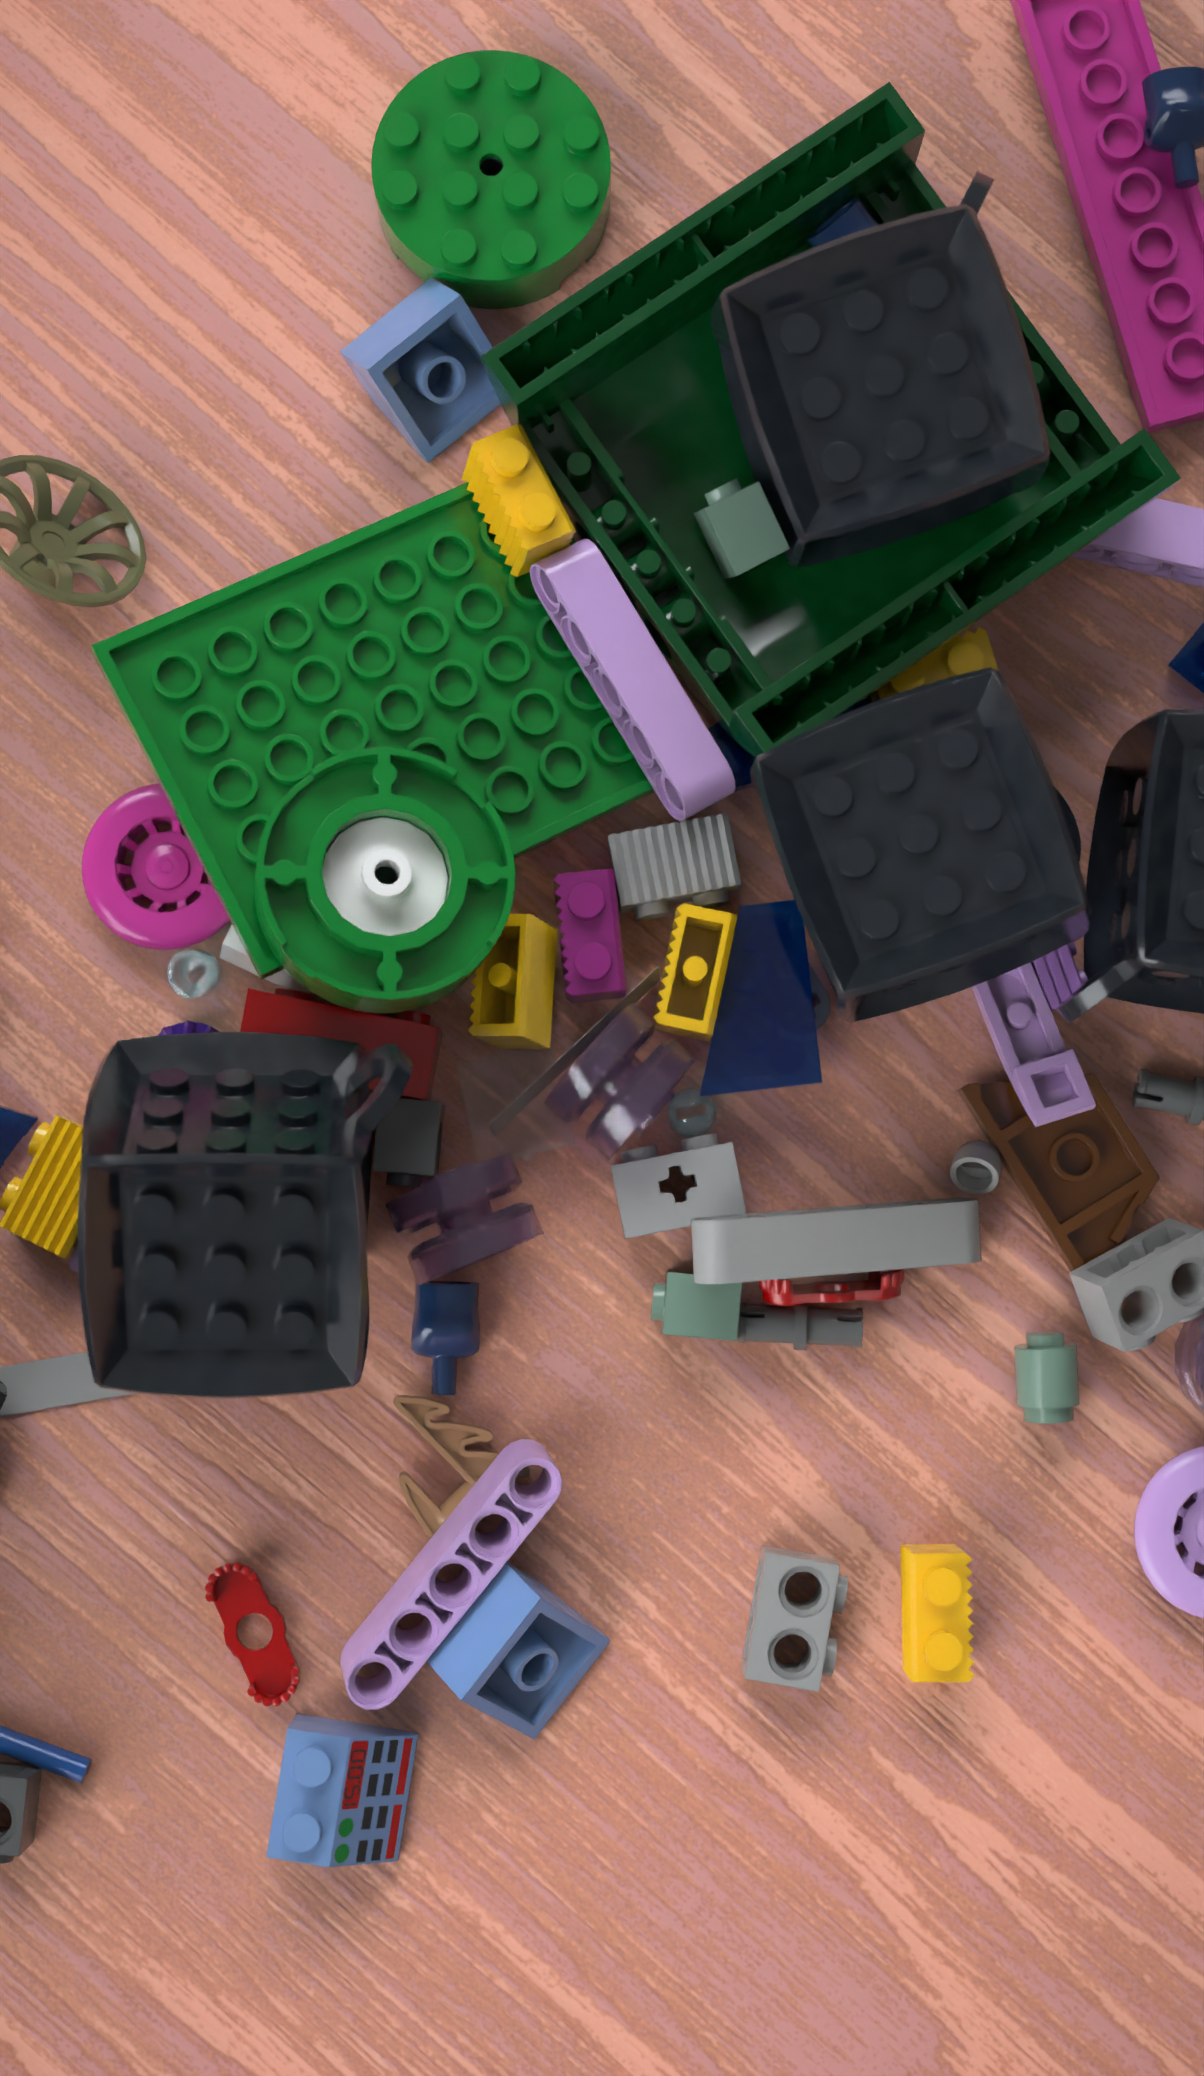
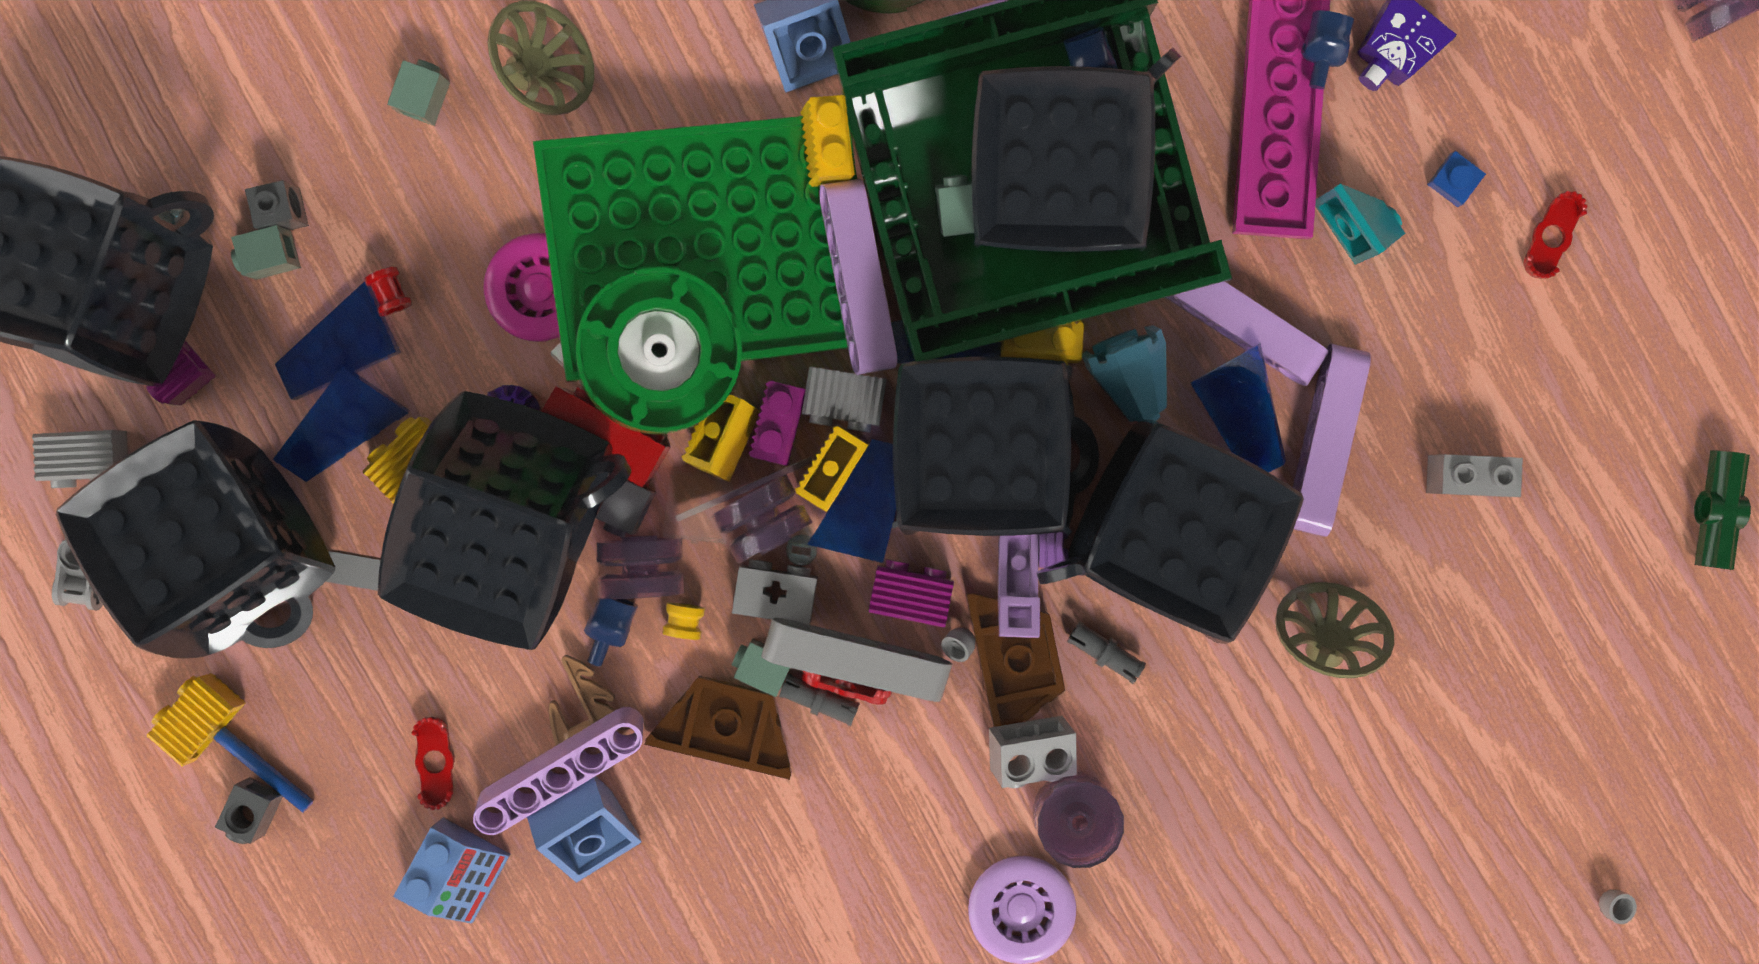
camera: 20 degrees right, 5 degrees up
(187, 963) = (529, 351): clear light blue hinge -> none
(555, 1279) = (683, 621): none -> yellow wheel
(675, 1416) = (726, 727): none -> reddish brown wing
(776, 1616) = (744, 865): light grey brick -> none
(878, 1117) = (911, 594): none -> magenta brick
(936, 1613) = (836, 896): yellow brick -> none
(1047, 1378) = (953, 783): sand green brick -> none
(1080, 676) = (1132, 372): none -> medium azure cone

